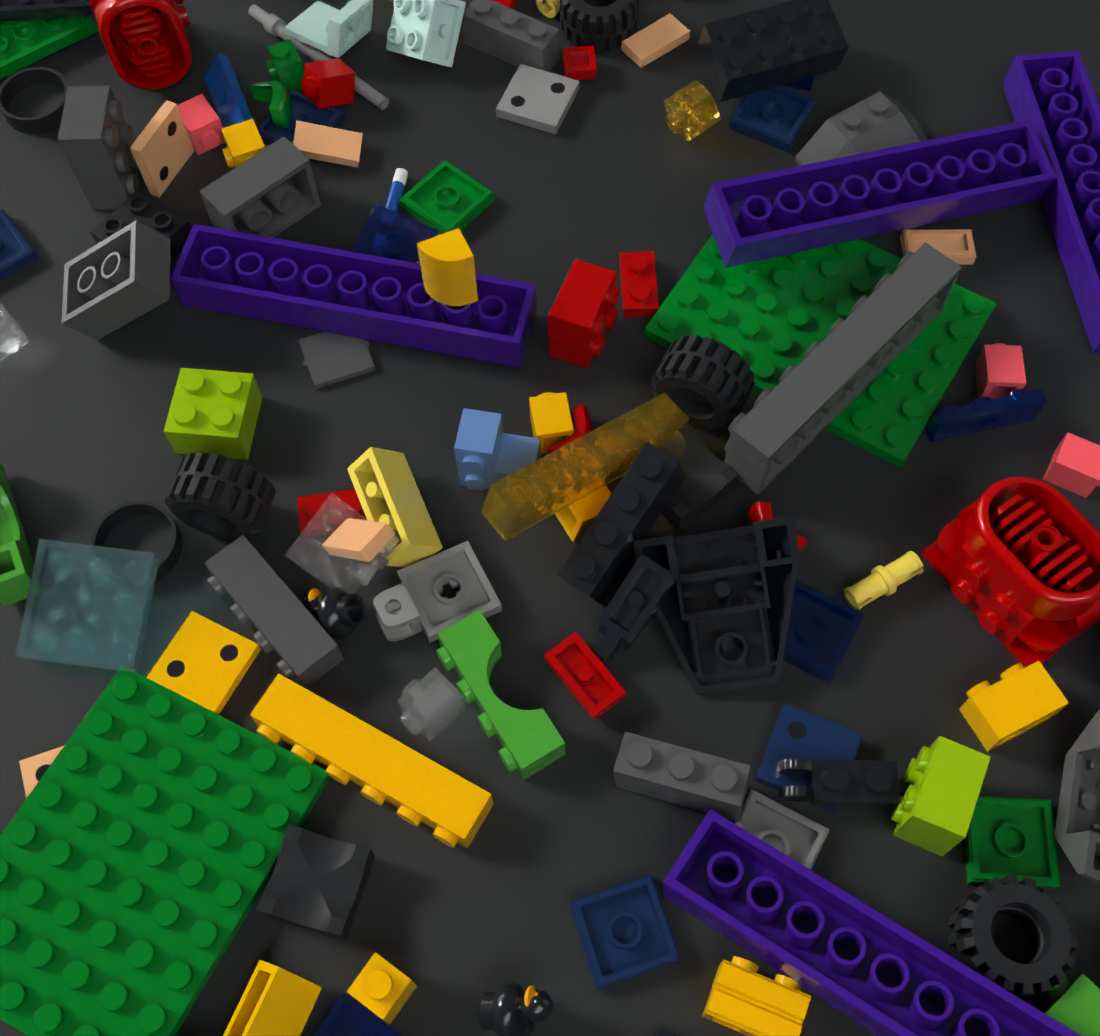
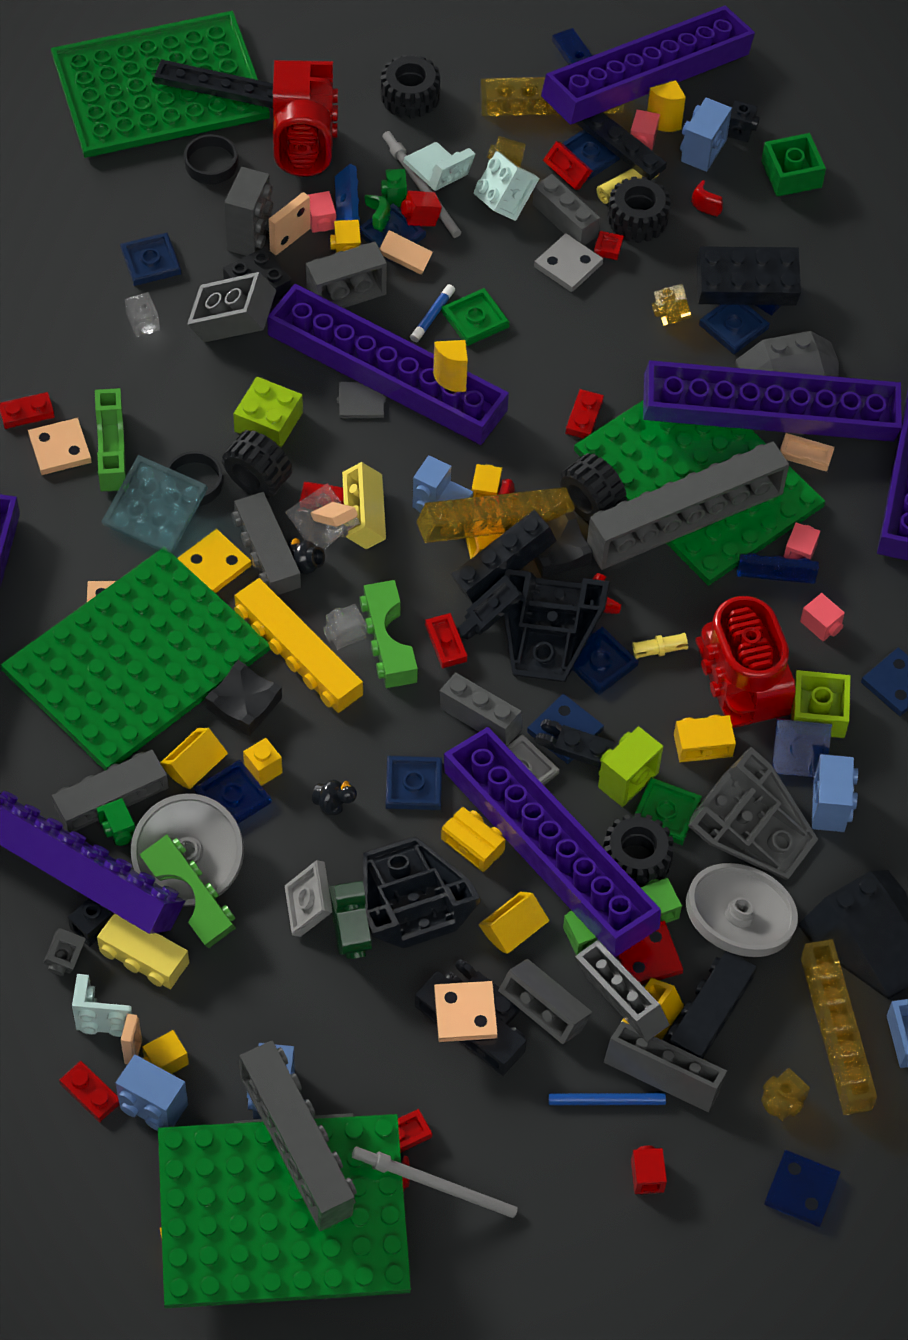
camera: 15 degrees right, 5 degrees down
(392, 235) = (425, 329): clear blue tile -> none
(417, 599) = (361, 565): light grey plate -> none
(583, 314) = (533, 421): red brick -> none
(655, 40) = (673, 244): light nougat tile -> none

